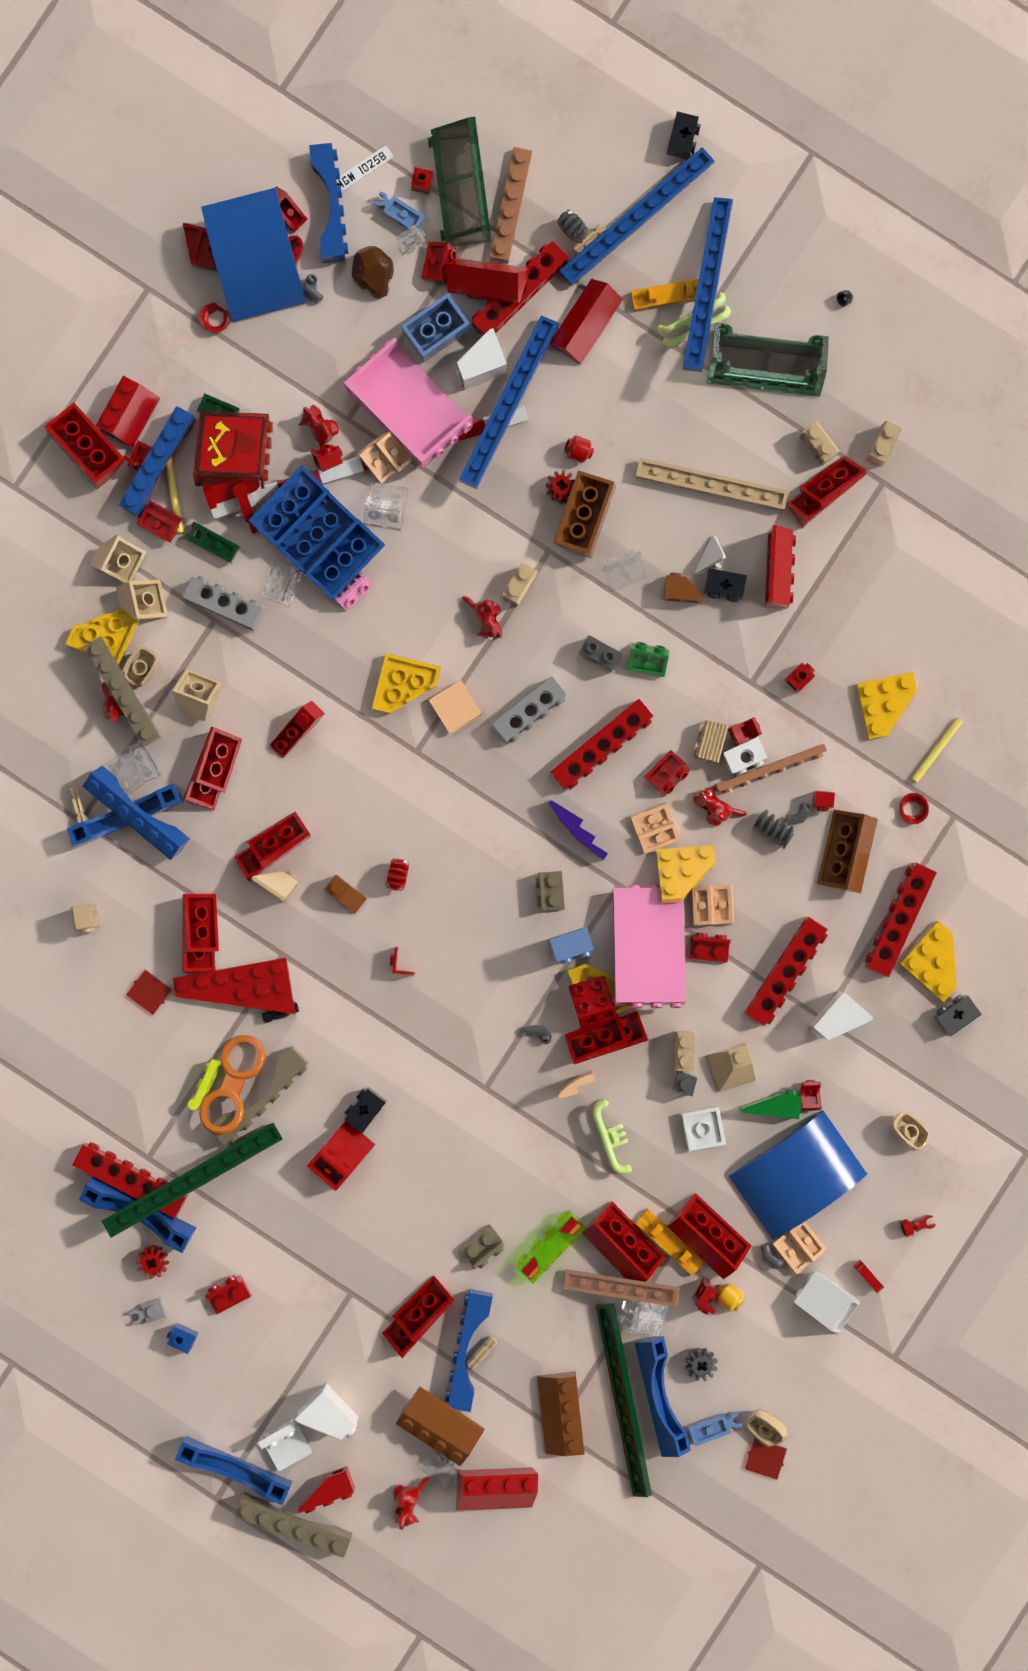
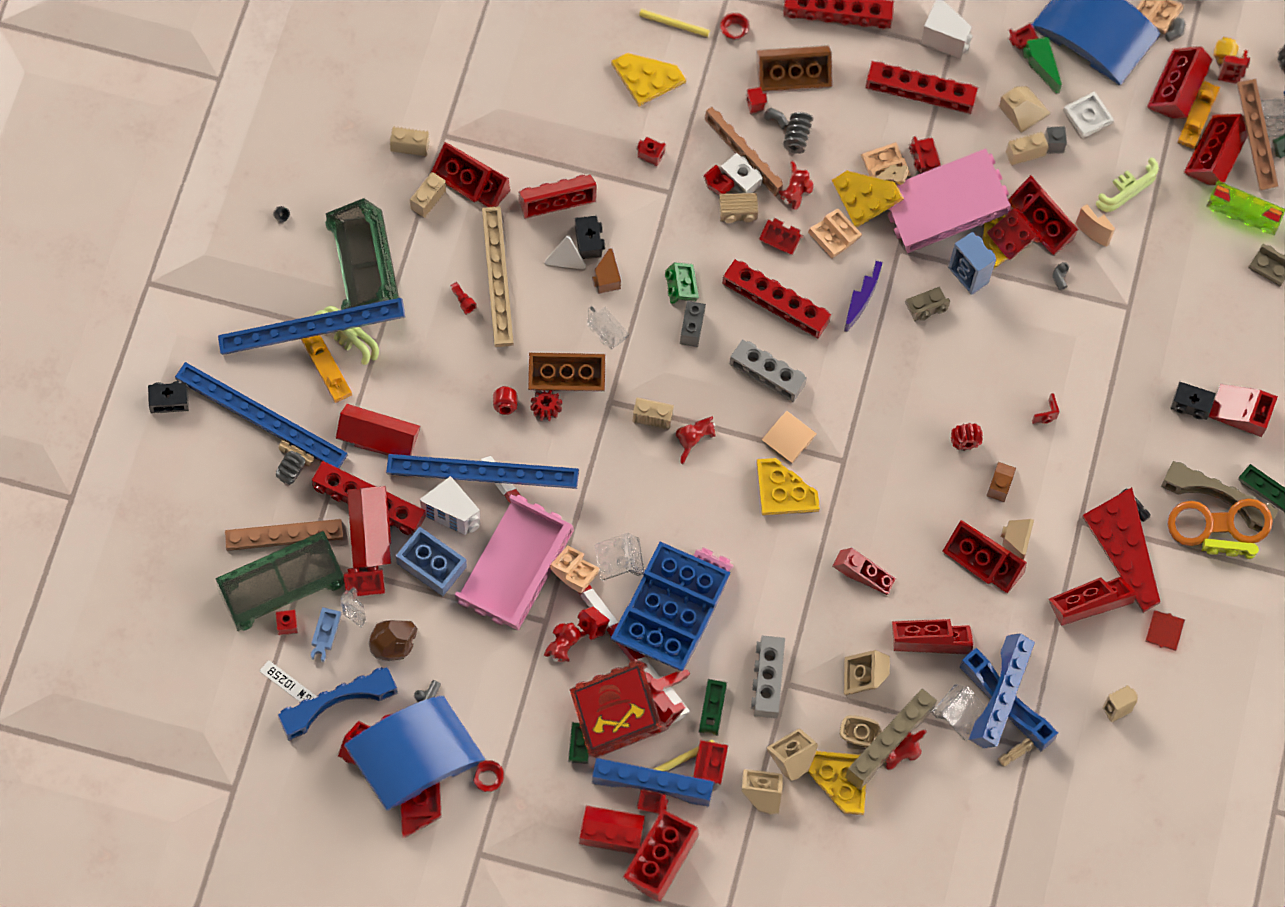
camera: 115 degrees left, 20 degrees down
(282, 584) = (730, 630): clear bracket -> none
(690, 445) = (467, 303): none -> red piece
(694, 904) = (895, 174): none -> tan animal

